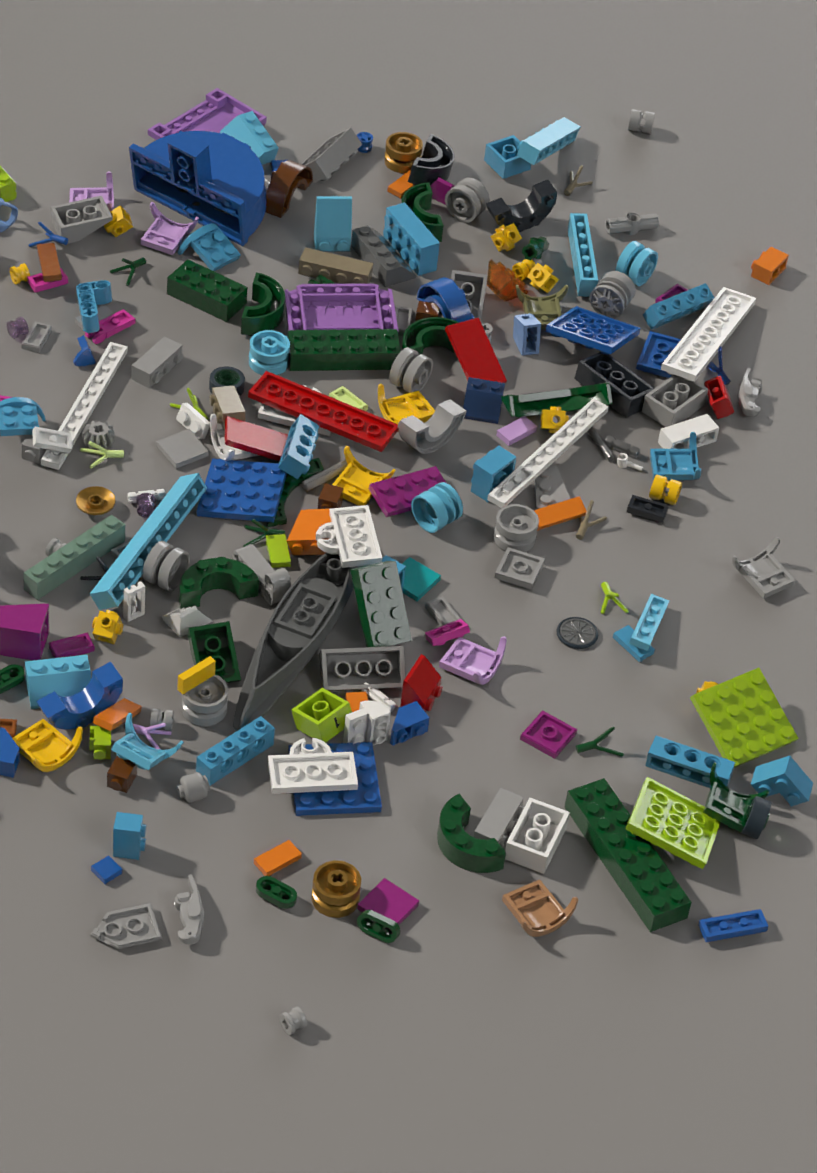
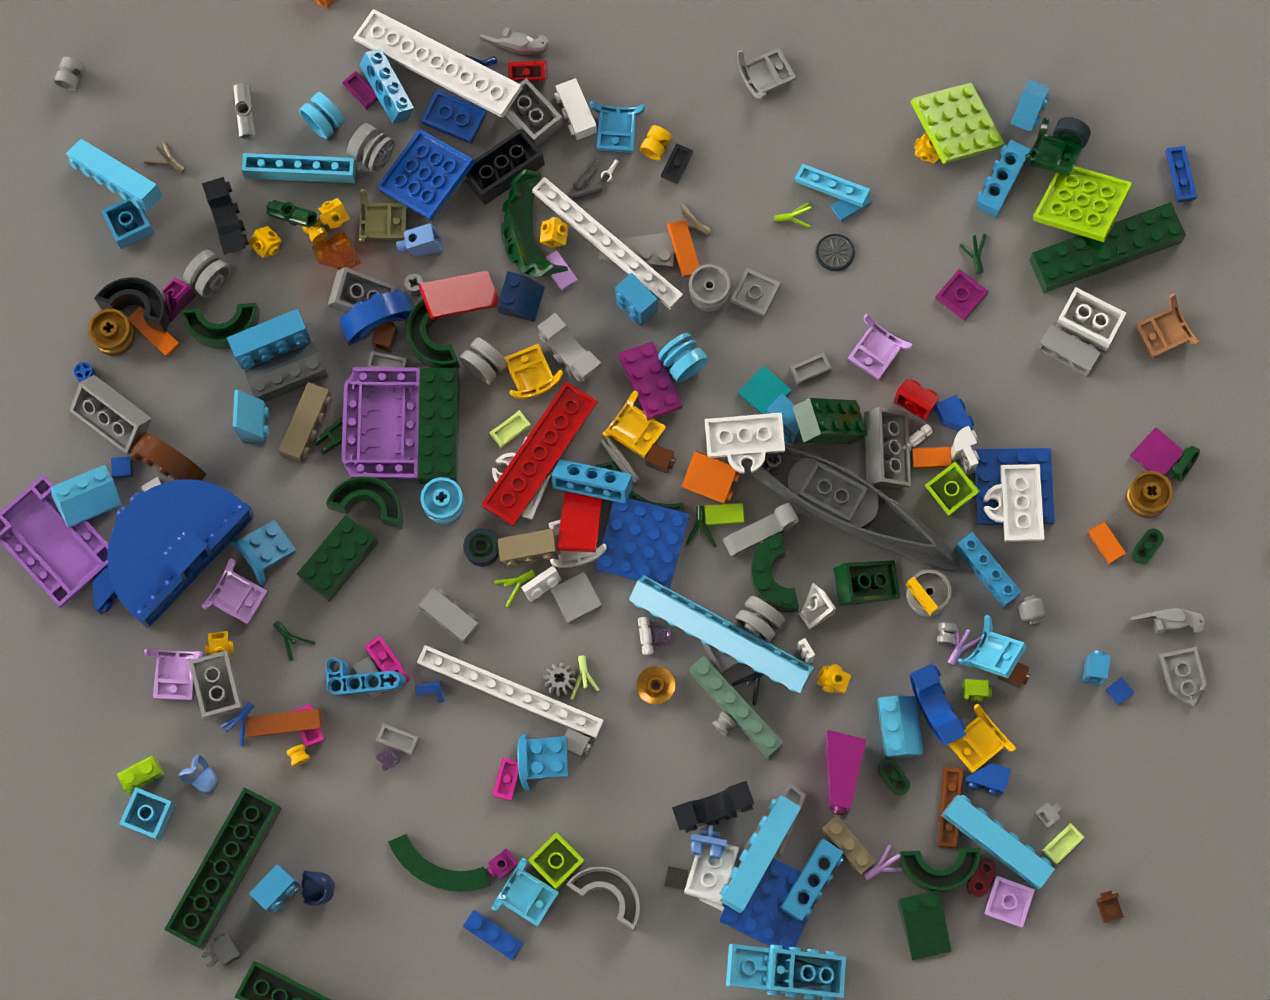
camera: 75 degrees left, 30 degrees up
(52, 439) = (580, 724): white plate -> none
(72, 646) = (848, 714): magenta tile -> none
(116, 714) = (950, 674): orange tile -> none
(447, 632) = (841, 367): dark pink plate -> none
(460, 847) = (1089, 391): dark green brick -> none

